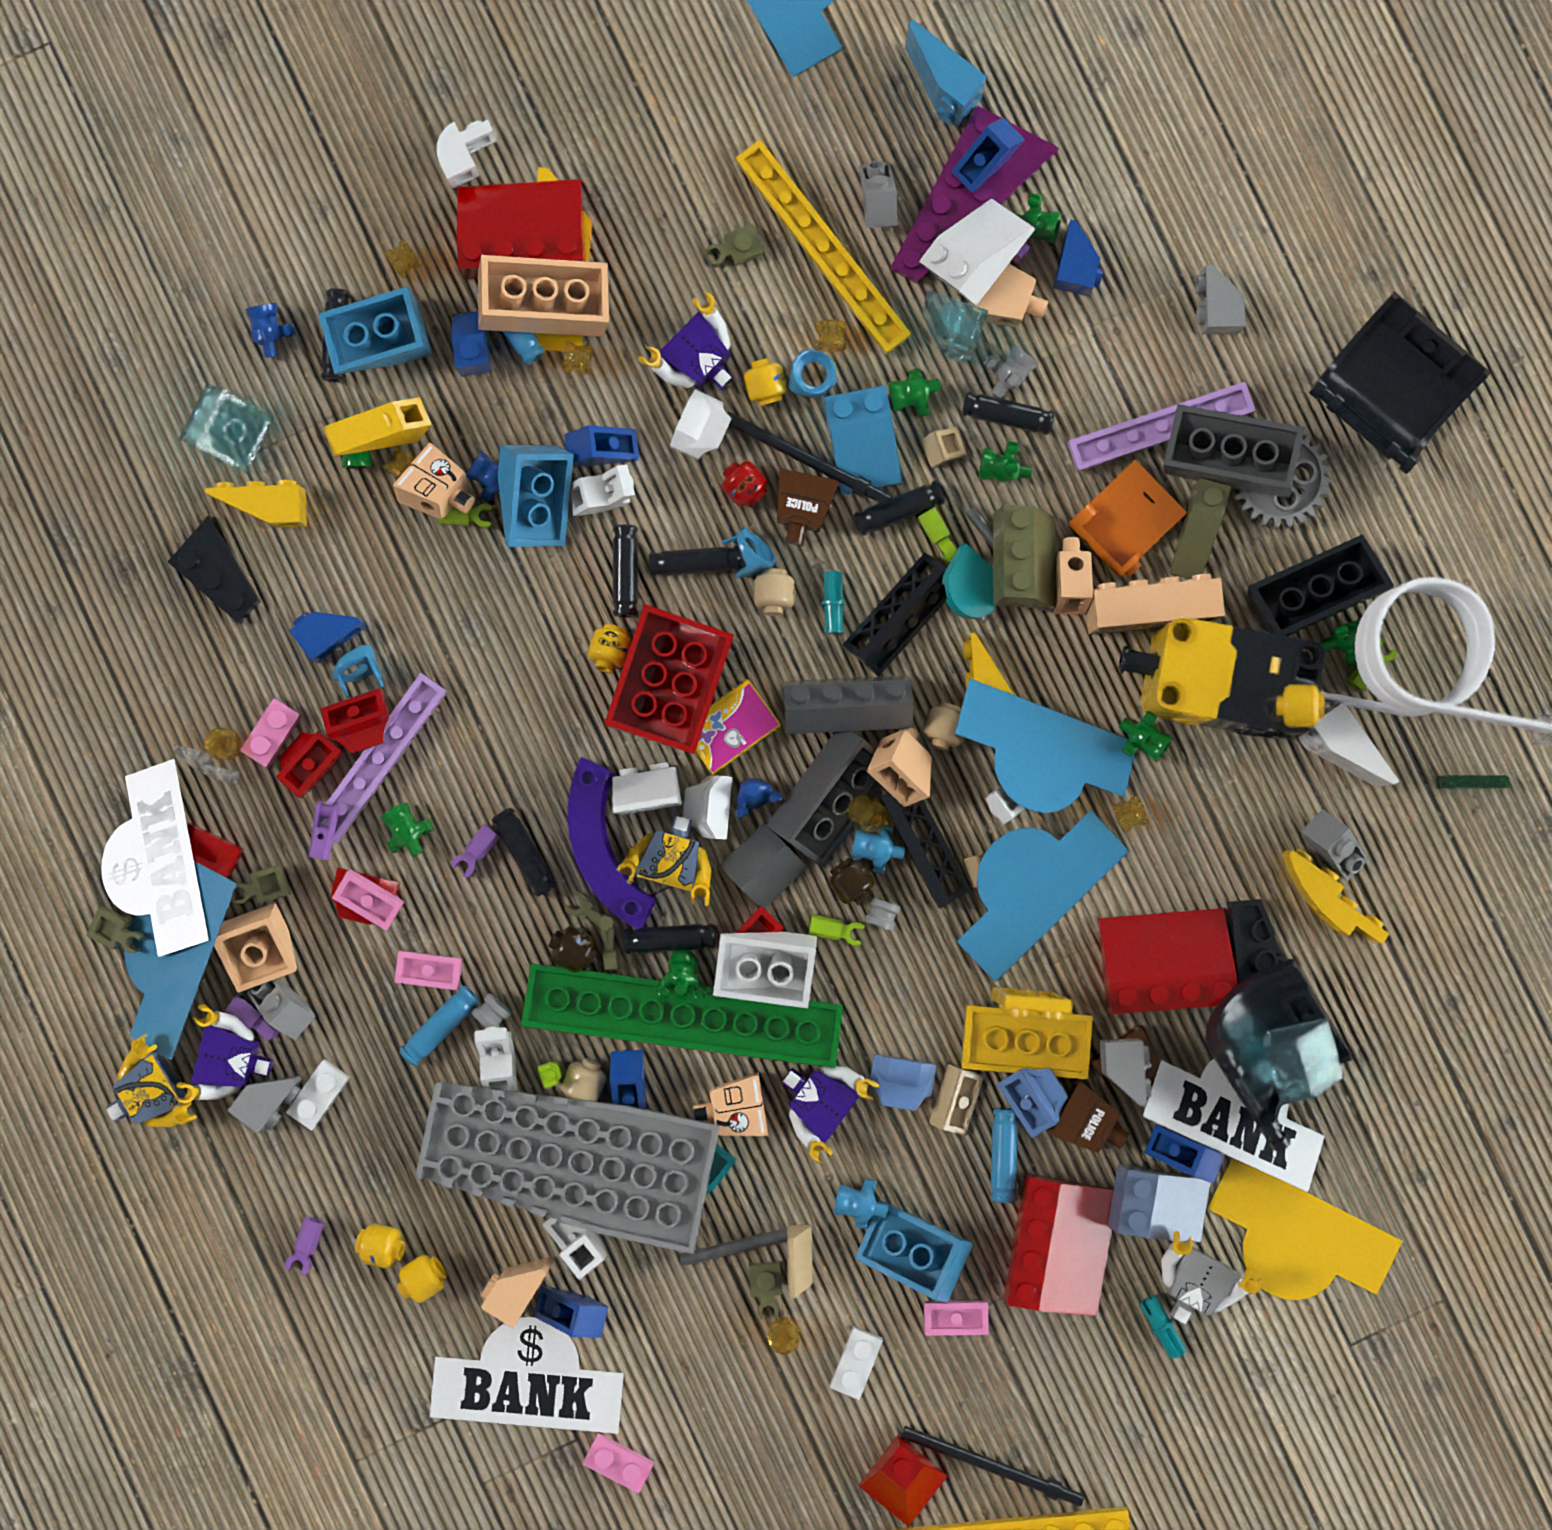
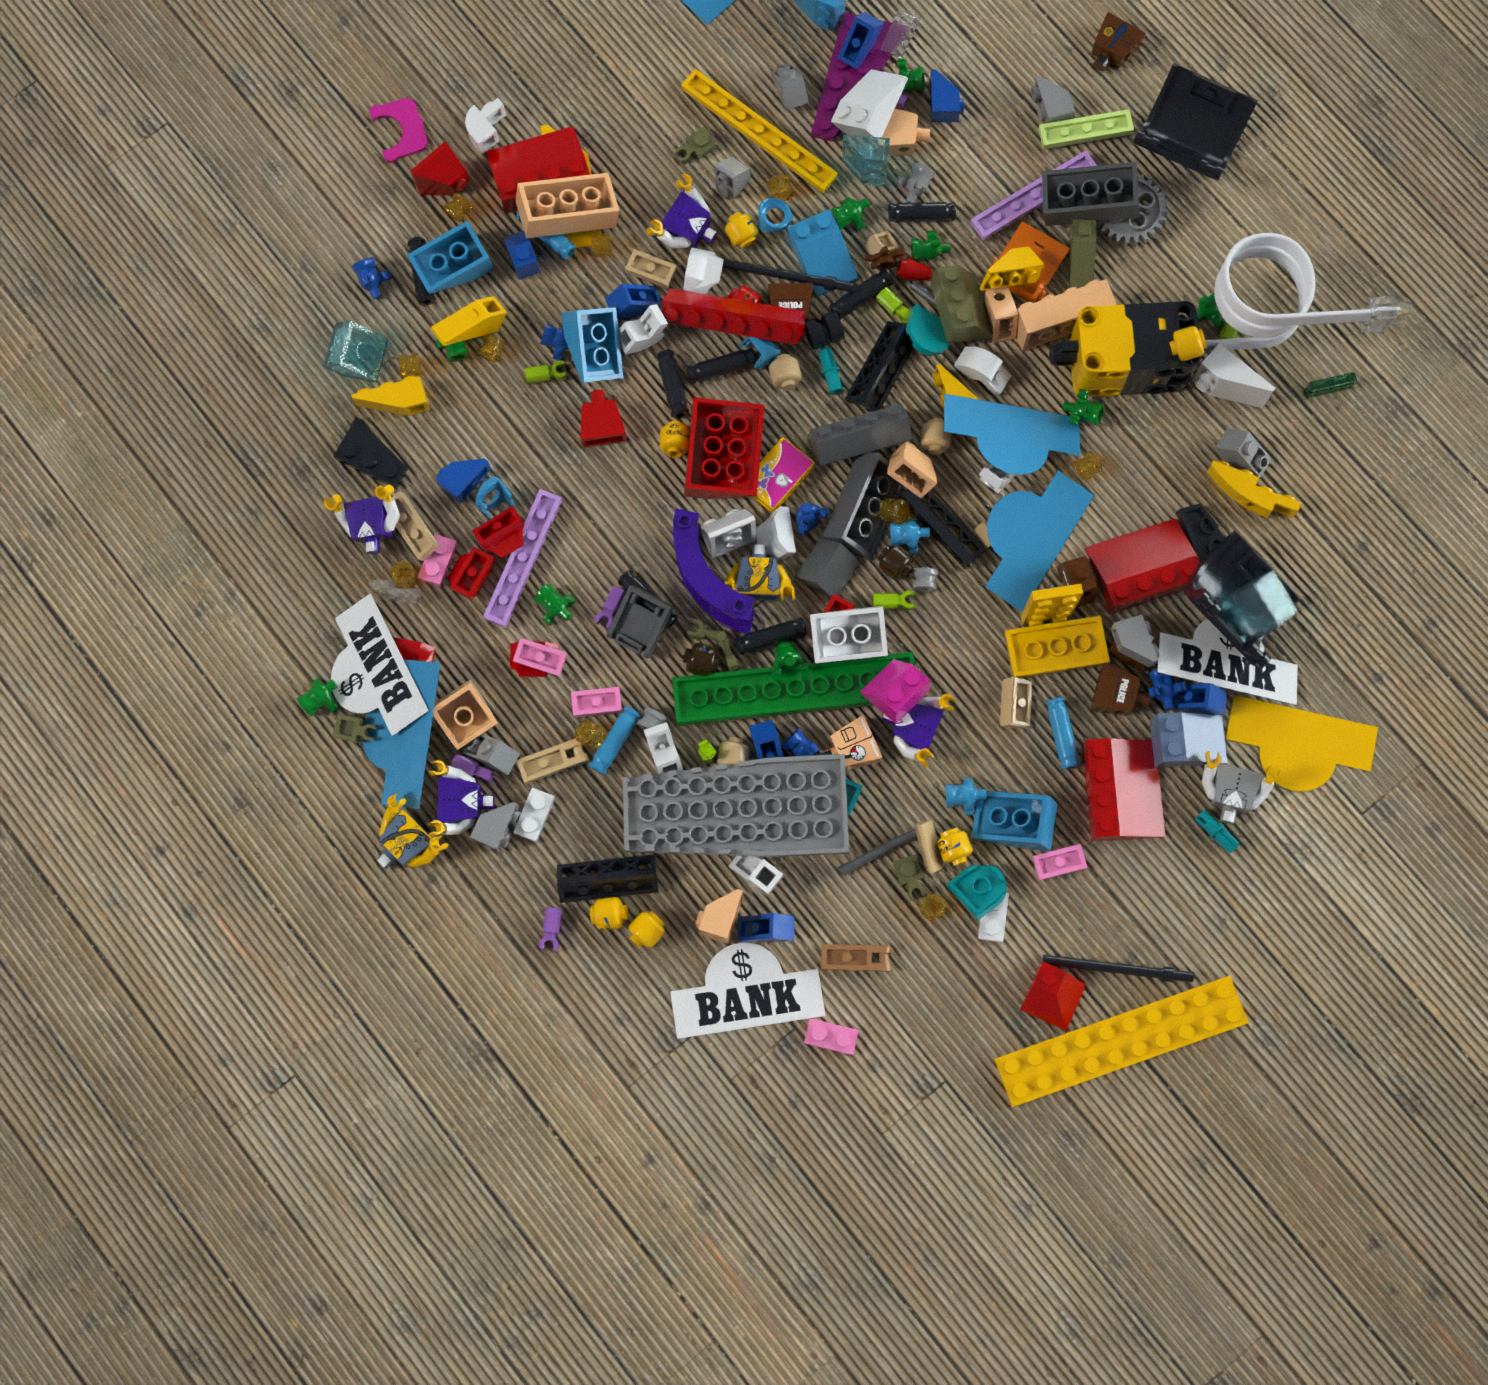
camera: 10 degrees left, 10 degrees down
(79, 878) = (318, 696): none -> green piece
(189, 660) = (368, 518): none -> torso
(244, 682) = (414, 529): none -> tan plate
(265, 885) = (460, 669): olive plate -> none
(291, 462) = (410, 365): none -> clear yellow wheel
(323, 837) = (495, 621): medium lavender bar -> none
(354, 1032) = (551, 761): none -> tan plate
(368, 142) = (413, 135): none -> dark pink piece
(382, 1206) = (607, 882): none -> black fence
(388, 208) = (440, 173): none -> red slope
(410, 1011) = (591, 734): none -> clear yellow wheel
(433, 485) = (518, 354): light nougat torso -> none
(504, 884) = (637, 624): none -> dark grey container
(520, 600) = (601, 422): none -> red torso
(634, 405) = (650, 268): none -> tan plate
(672, 1093) = (800, 745): none -> blue piece
(672, 1374) = (855, 957): none -> medium nougat plate
(723, 504) = (733, 316): none -> red brick
(770, 305) = (731, 177): none -> light grey slope
(806, 1054) = (897, 689): none -> dark pink slope
(830, 1268) = (954, 846): none -> yellow head
(837, 547) = (824, 330): none -> black wheel
(847, 1327) = (979, 889): none -> teal tile
(902, 1081) = (972, 696): medium blue slope -> none
(941, 469) = (884, 259): none -> reddish brown animal
(974, 491) = (913, 270): none -> red cone
(1030, 650) = (983, 366): none -> white brick
(1034, 1097) = (1073, 683): medium blue slope -> none
(1044, 155) = (900, 33): none -> clear slope
(1075, 962) = (1079, 572): none -> reddish brown torso
(1108, 529) = (1015, 268): none -> yellow slope
(1147, 1133) = (1165, 688): none -> blue piece
(1253, 350) = (1086, 129): none -> yellowish green plate
(1318, 588) = (1178, 271): black slope -> none
(1325, 238) = (1115, 42): none -> reddish brown torso

